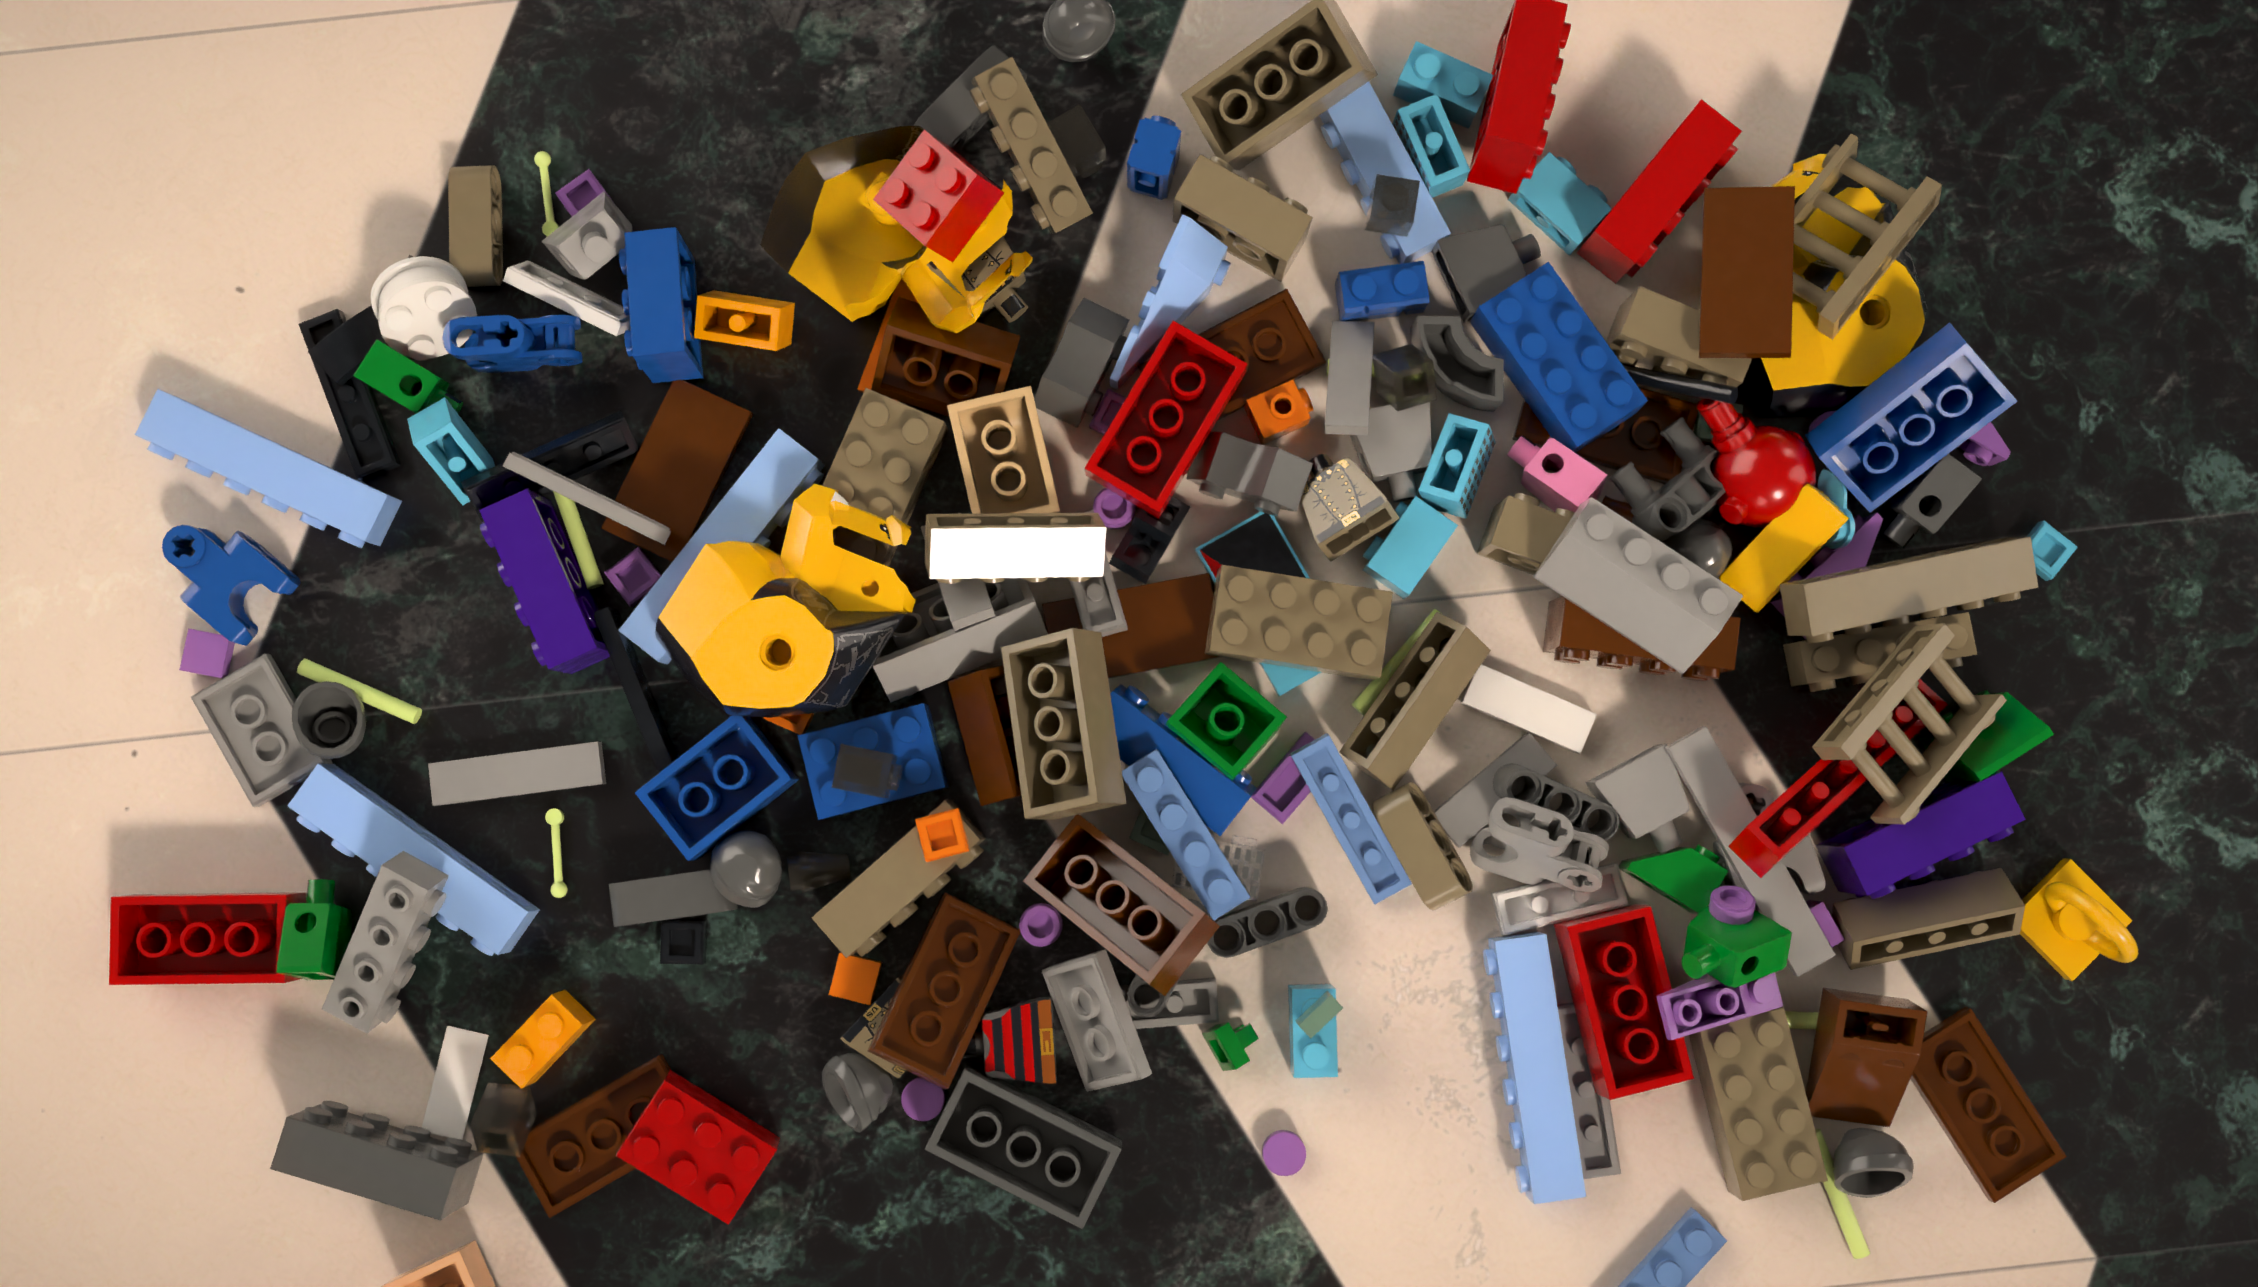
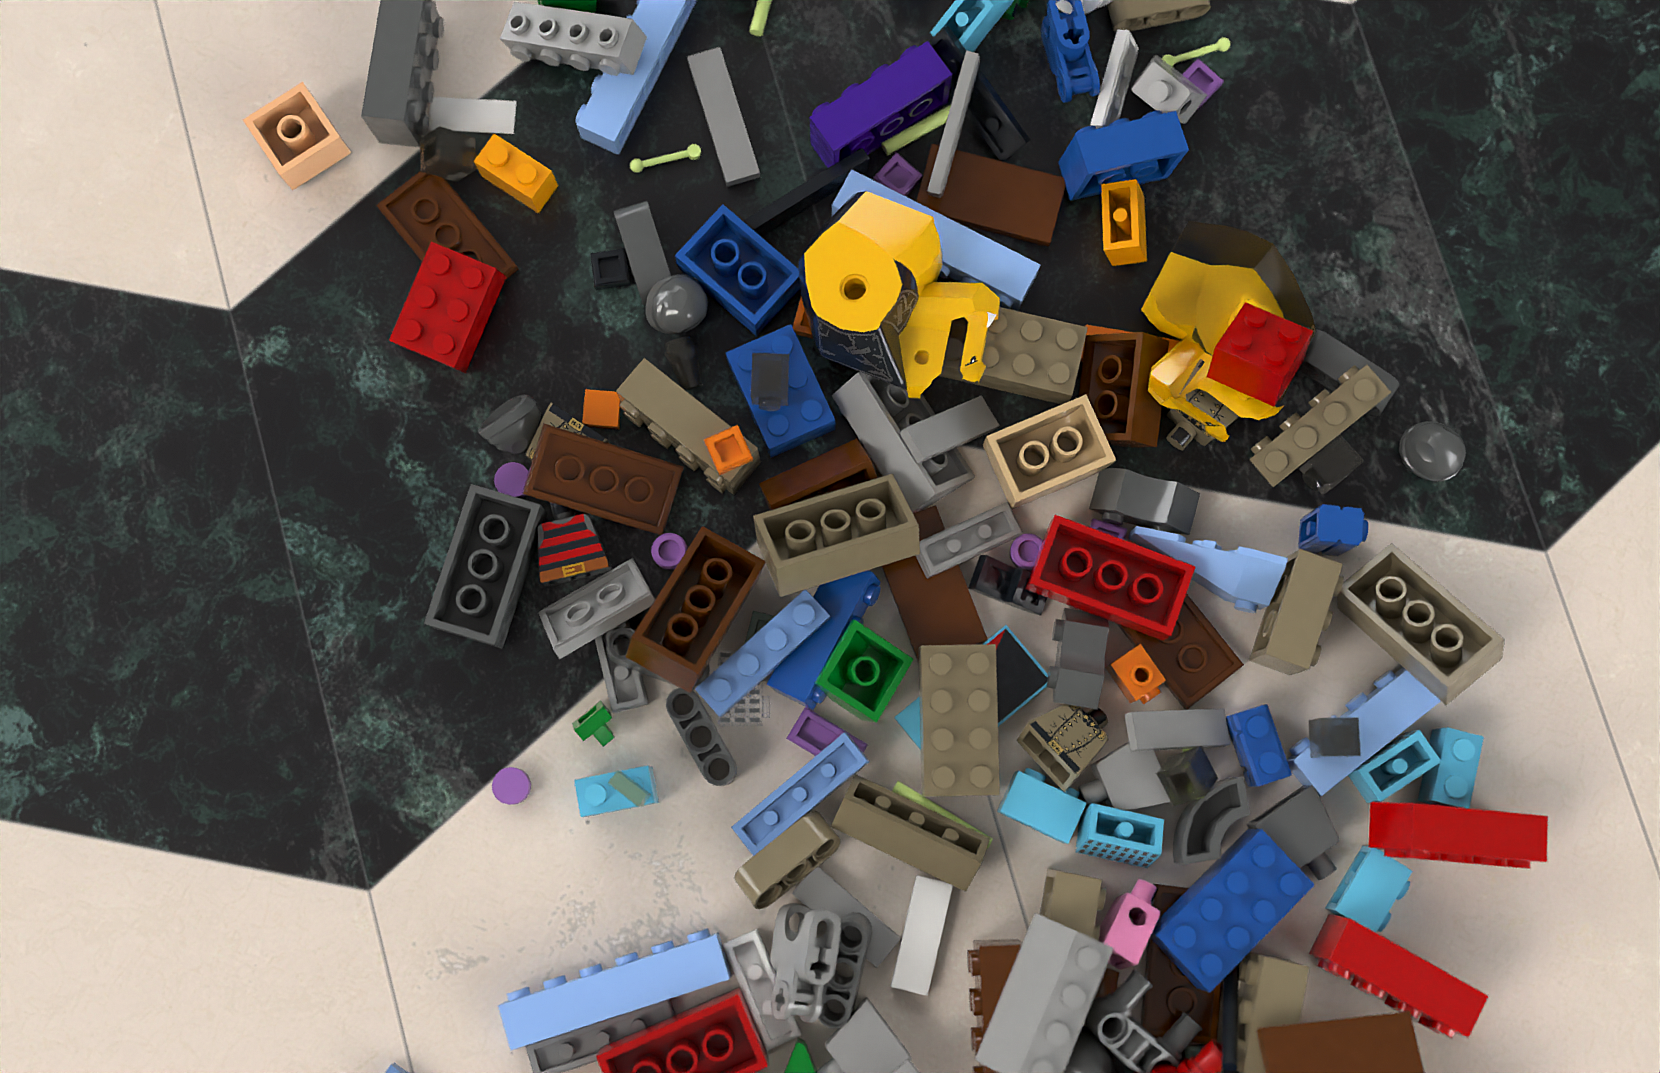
camera: 80 degrees right, 5 degrees down
(1014, 546) = (978, 468): brick -> none

